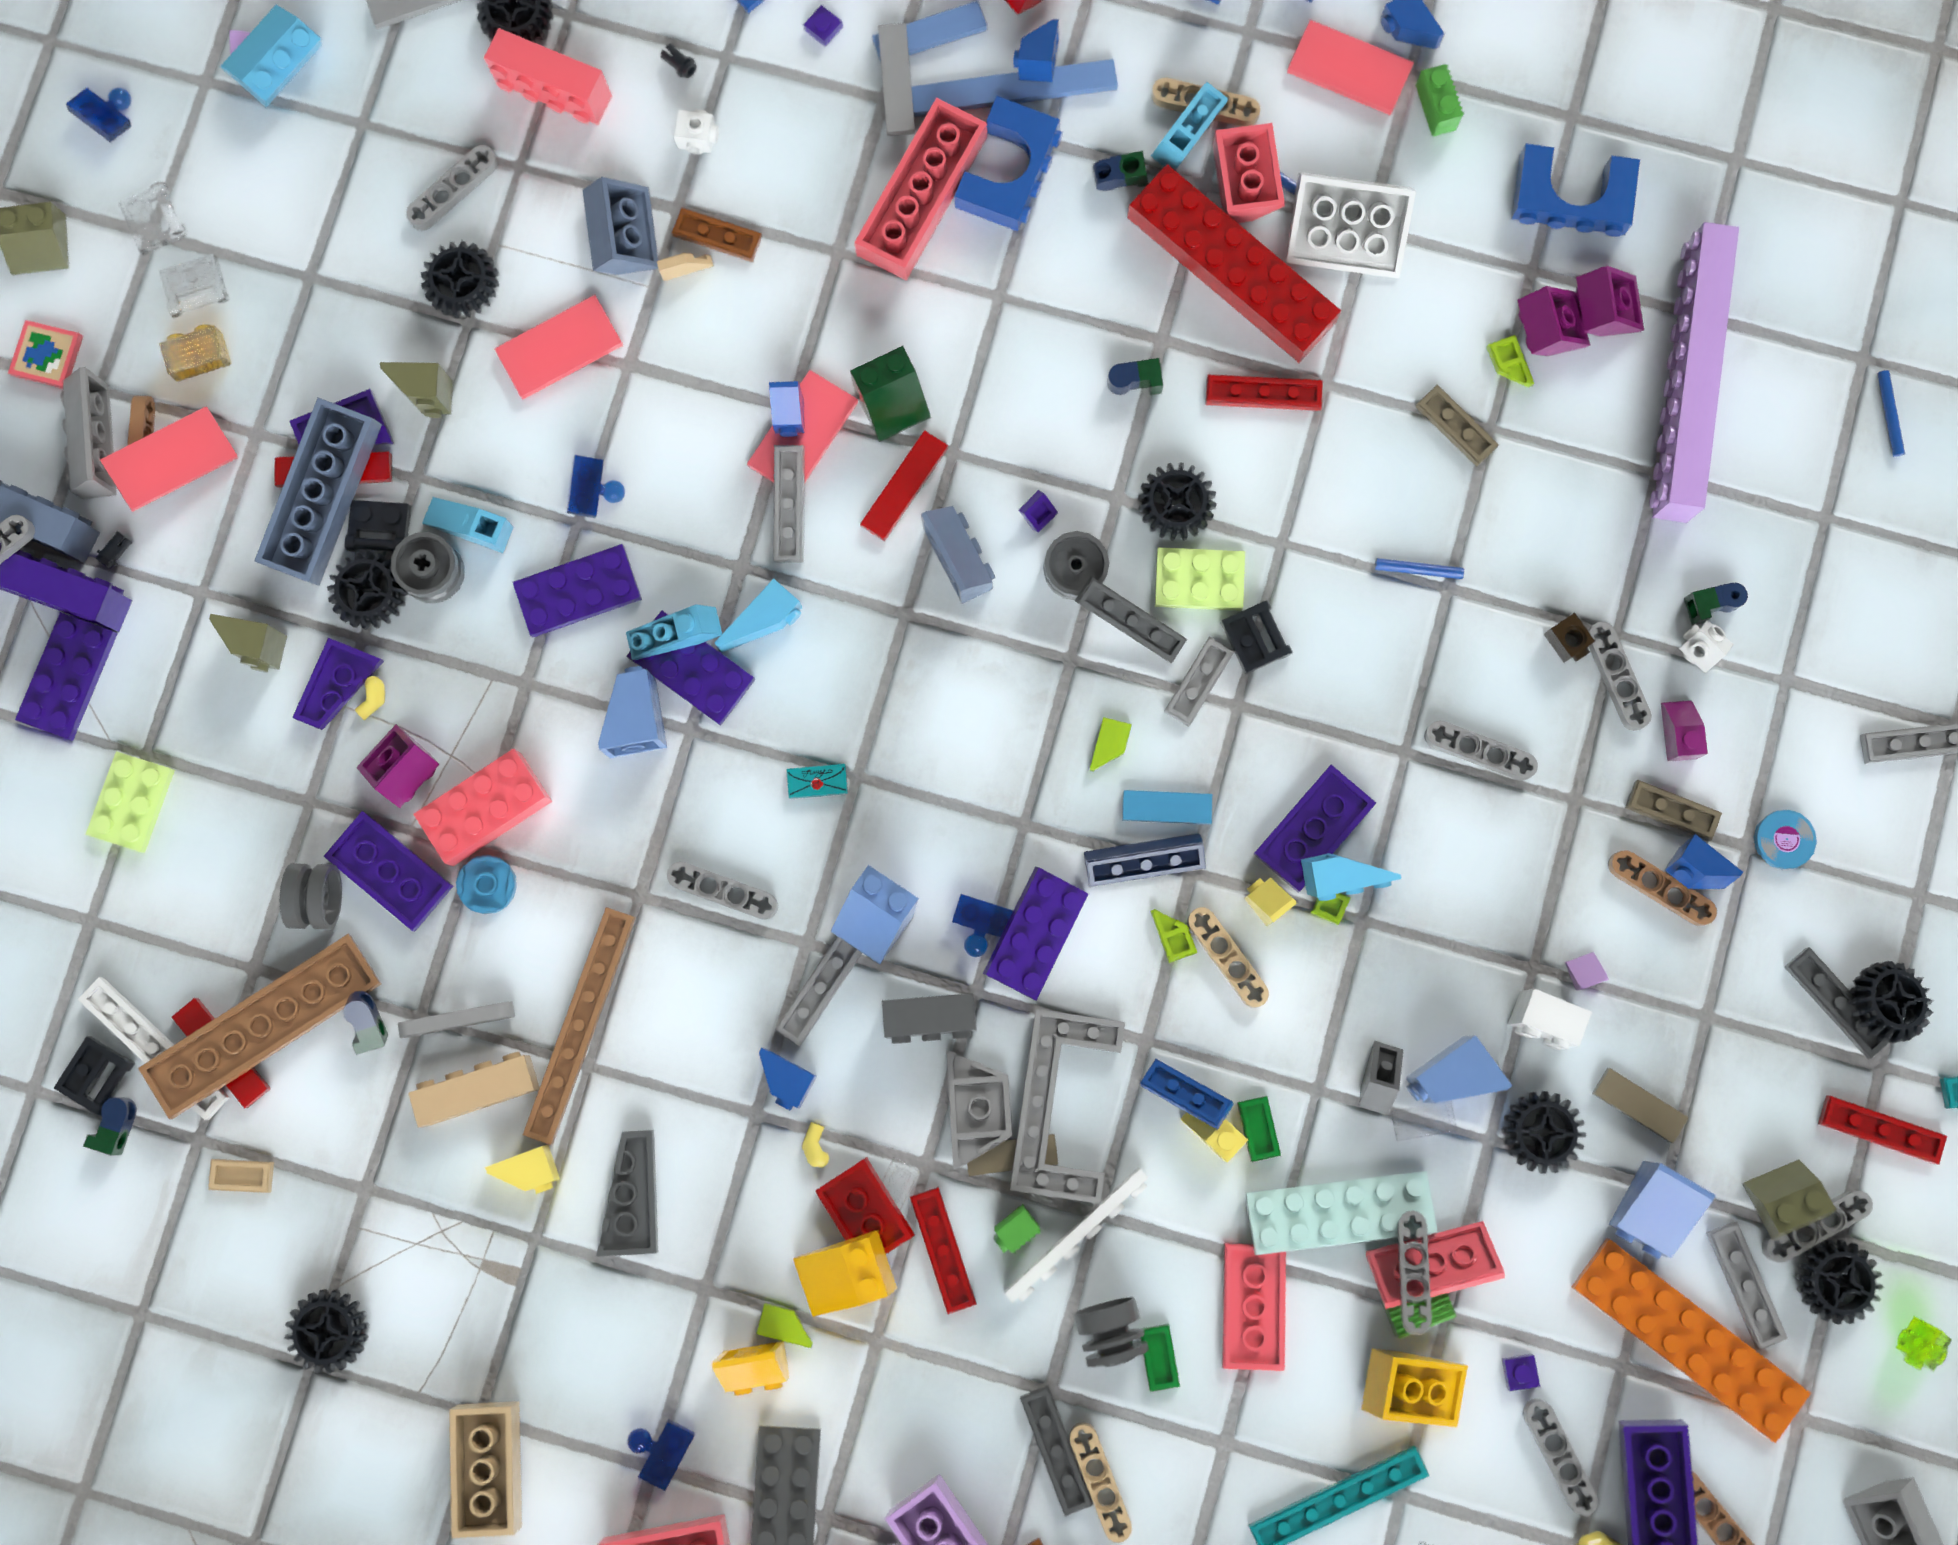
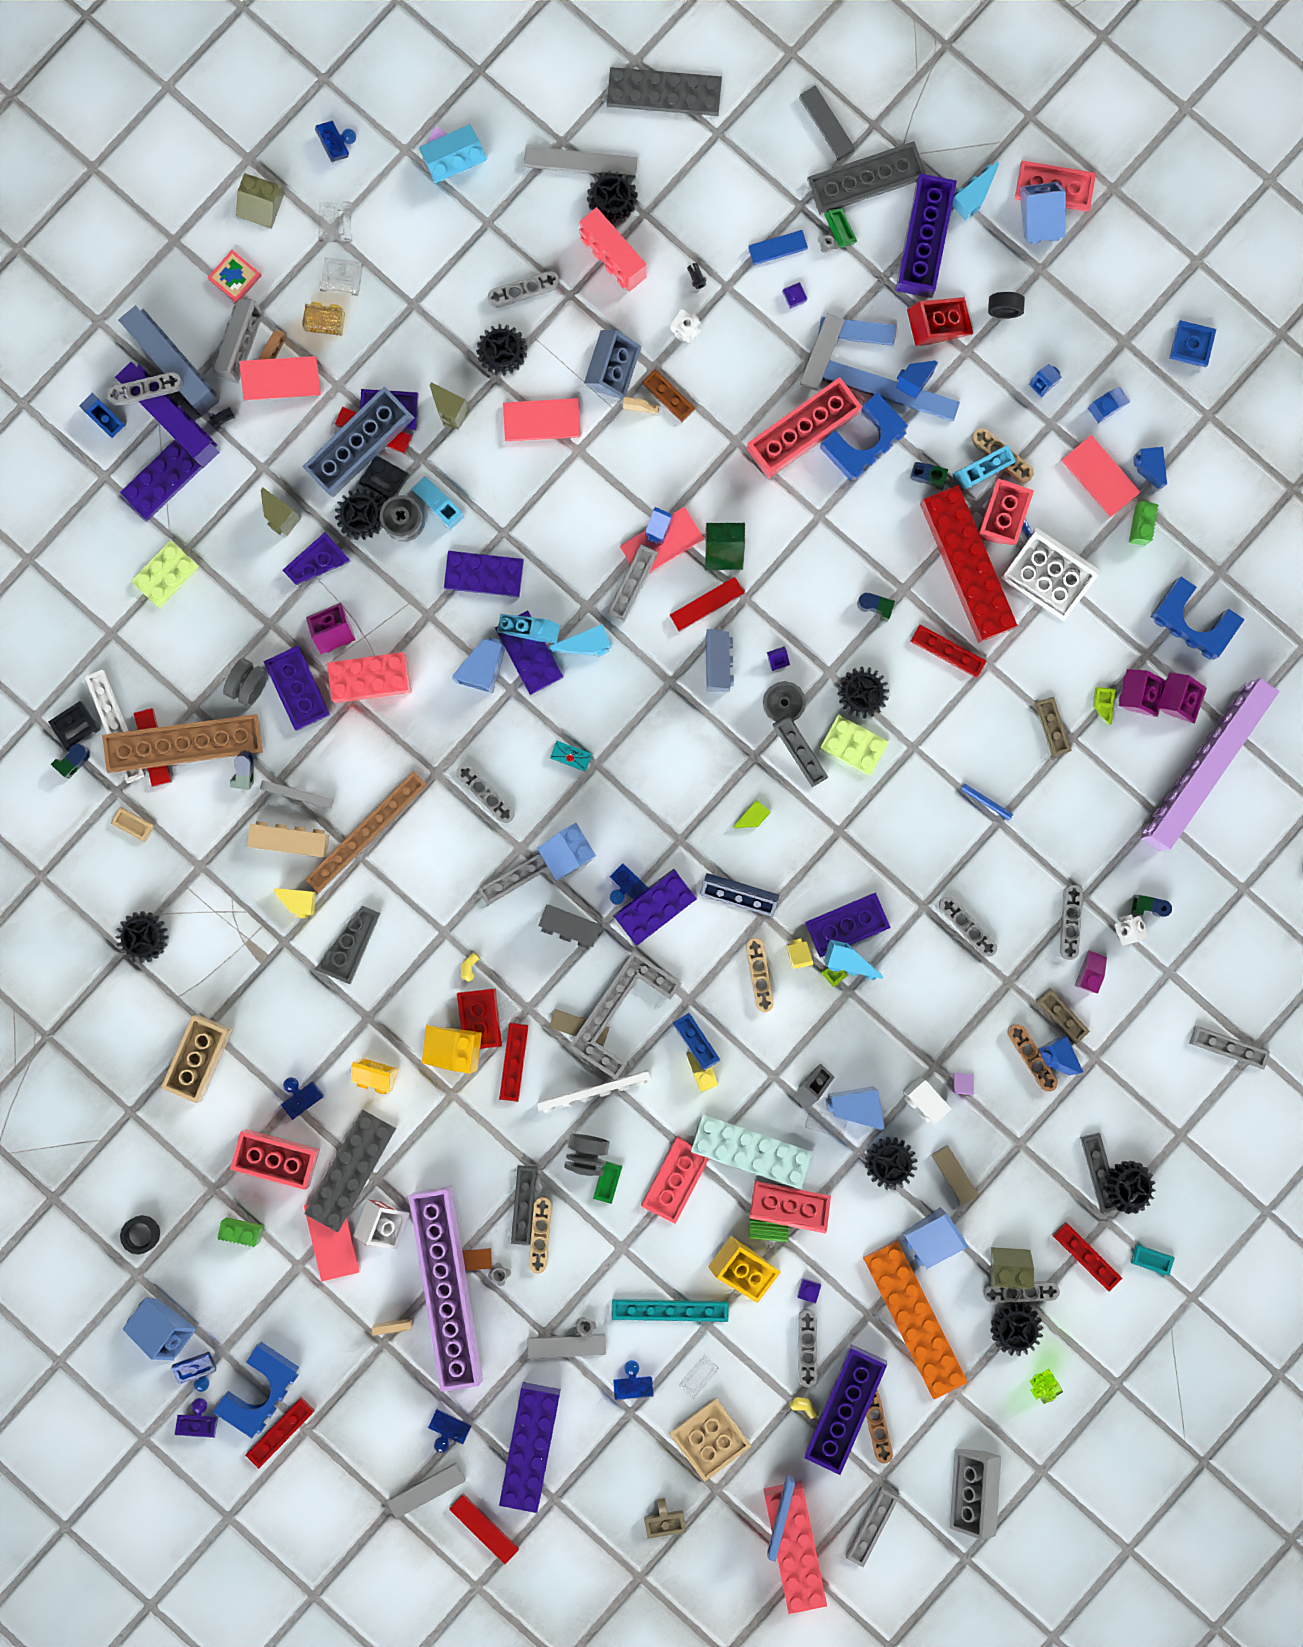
camera: 20 degrees right, 5 degrees up
(374, 697) = (335, 581): light yellow arm -> none
(486, 884) = (350, 723): dark azure tile -> none
(587, 486) = (518, 514): clear blue plate -> none
(783, 1325) = (402, 1059): lime tile -> none
(786, 1079) = (470, 921): blue slope -> none
(977, 1108) = (572, 992): light grey wing -> none
(1016, 1230) = (560, 1071): bright green brick -> none
(1167, 807) = (767, 870): dark azure tile -> none
(1174, 936) = (734, 947): lime tile -> none
(1199, 681) = (823, 805): light grey tile -> none
(1247, 640) = (864, 796): black plate -> none
(1259, 1128) = (728, 1081): green tile -> none
(1414, 1272) = (777, 1206): light grey beam -> none
(1573, 626) = (1047, 880): dark brown brick -> none
(1747, 1285) = (963, 1305): light grey tile -> none
(1785, 839) = (1119, 1064): dark azure tile -> none

